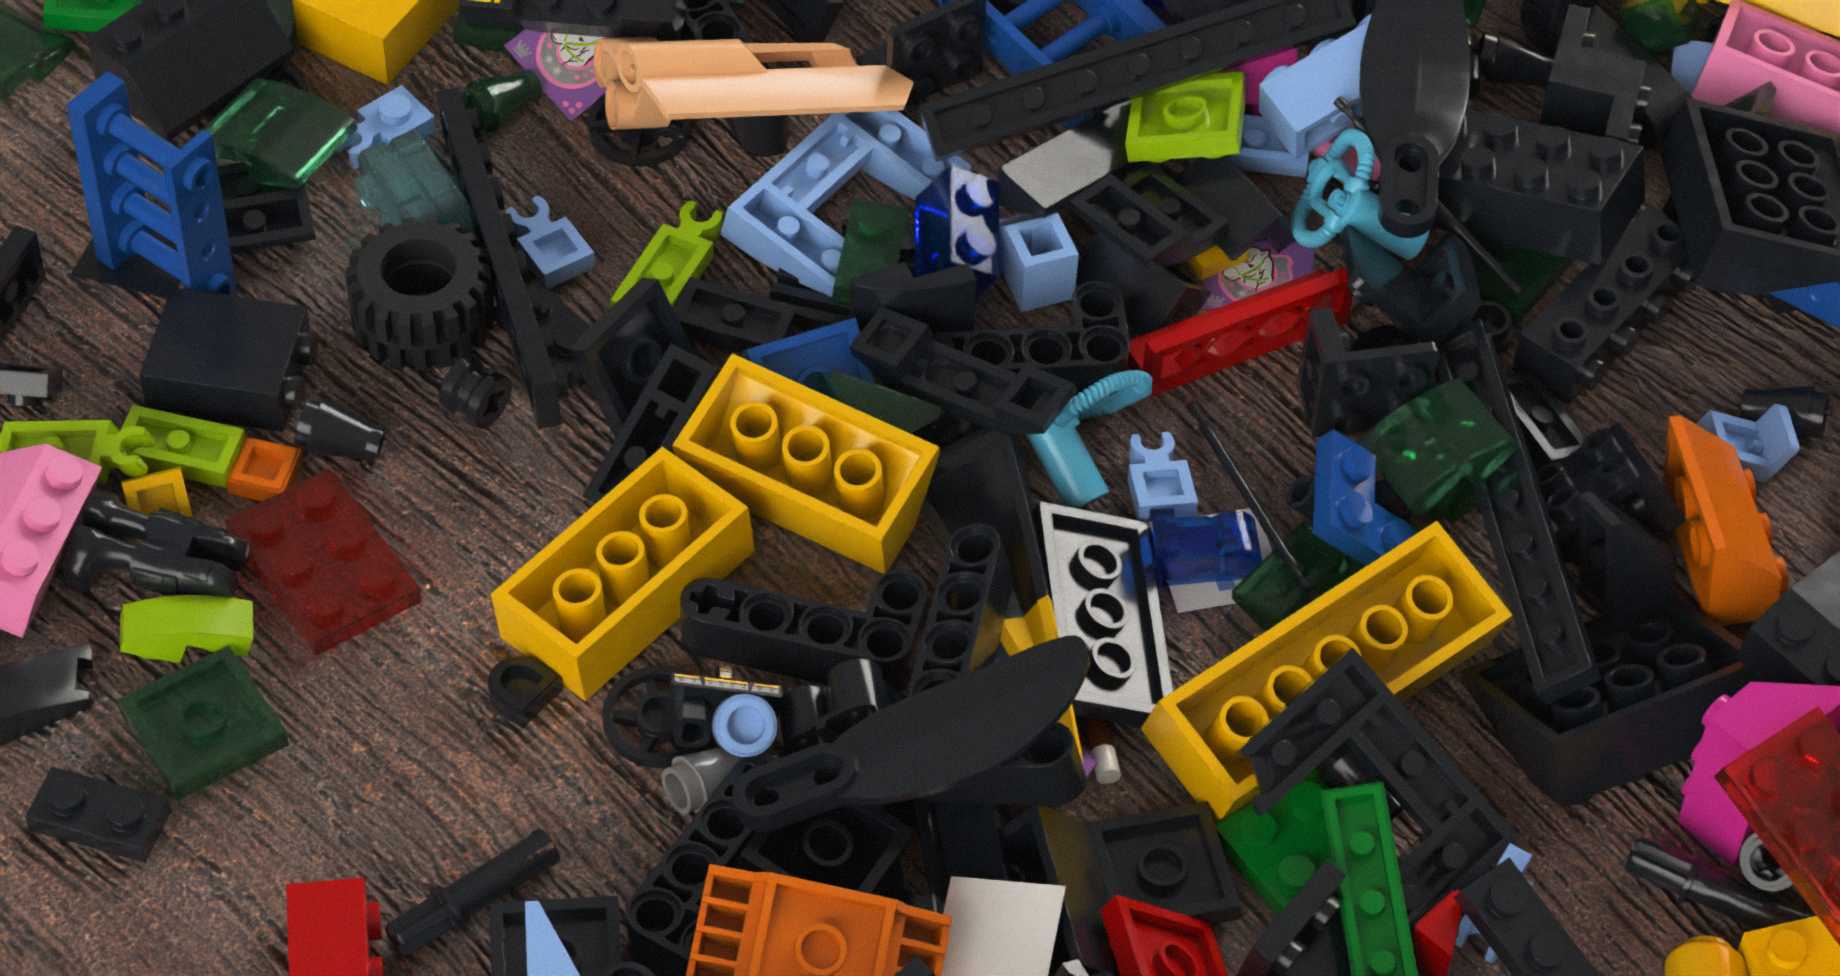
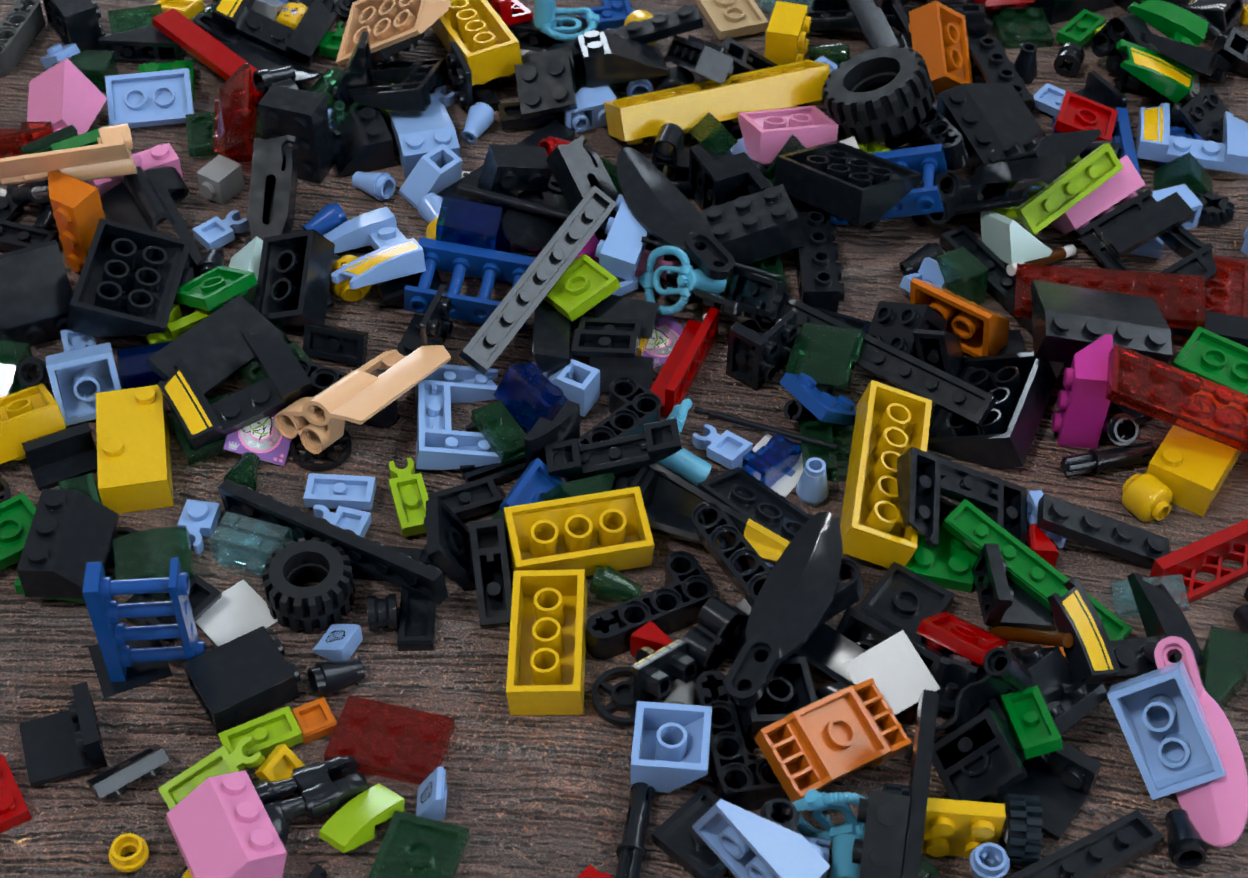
camera: 40 degrees left, 5 degrees down
(298, 667) = (433, 796): none -> light blue slope
(309, 275) = (235, 614): none -> white sticker
(392, 397) = (339, 642): none -> light blue slope
(510, 439) = (416, 623): none -> black tile
(522, 688) = (548, 730): black tile -> none
(592, 200) = (340, 490): none -> light blue plate
(616, 805) = (670, 744): none -> light blue slope
(744, 725) = (688, 664): light blue tile -> none
(753, 659) = (649, 636): none -> red slope
(796, 562) = (613, 586): none -> clear green cone
(1221, 617) = (813, 483): none -> light blue cone
(1801, 473) = (964, 274): none -> clear green slope

